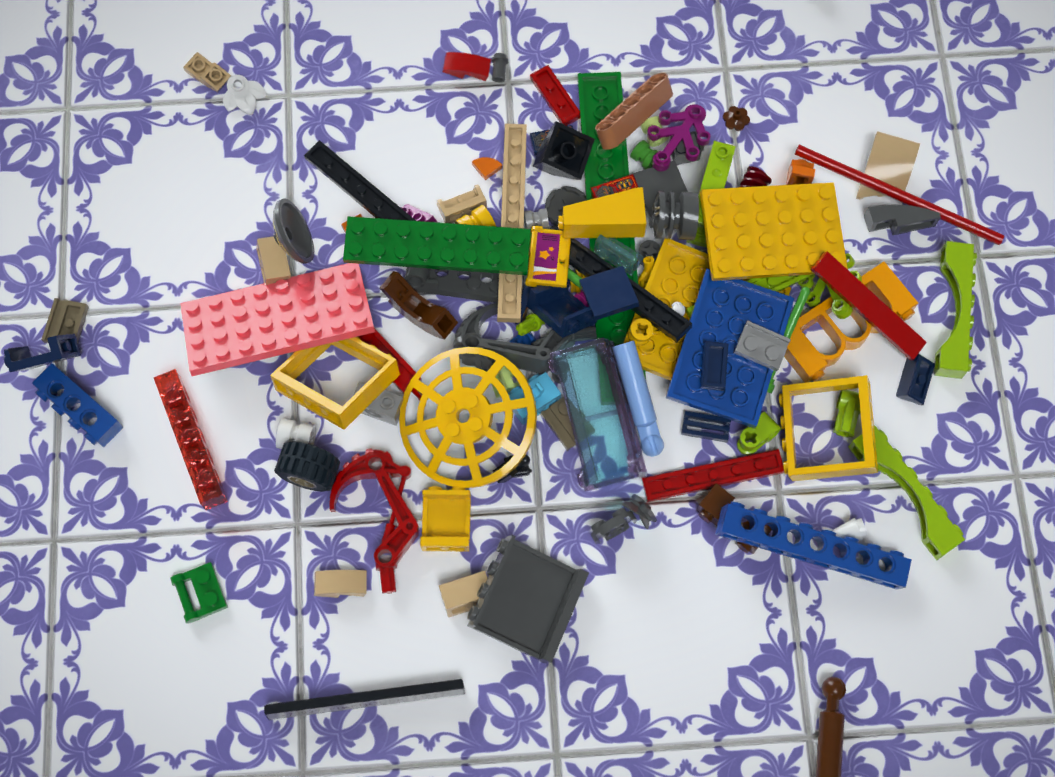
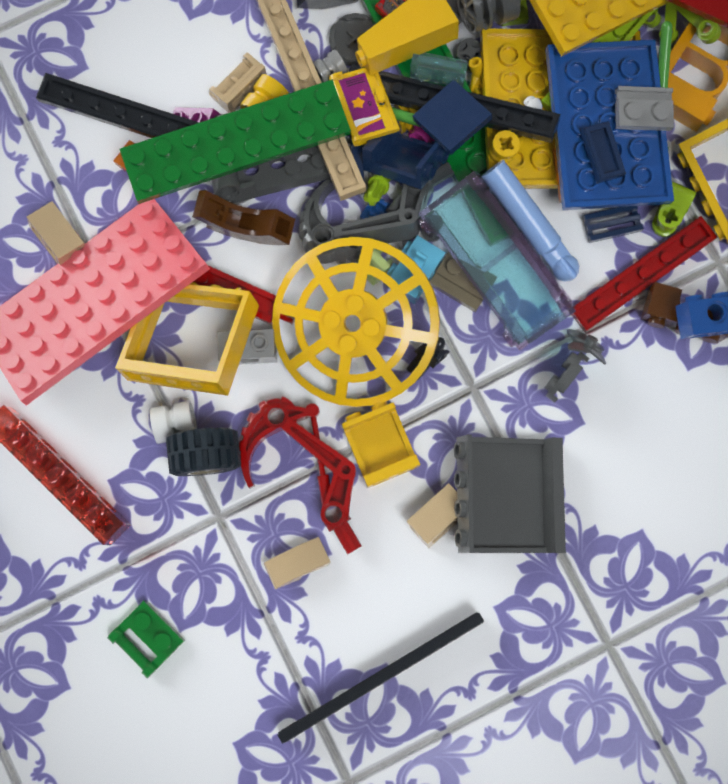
camera: 20 degrees left, 10 degrees up
(292, 231) = (63, 192): dark grey dish -> none
(487, 166) = (245, 28): orange tile -> none

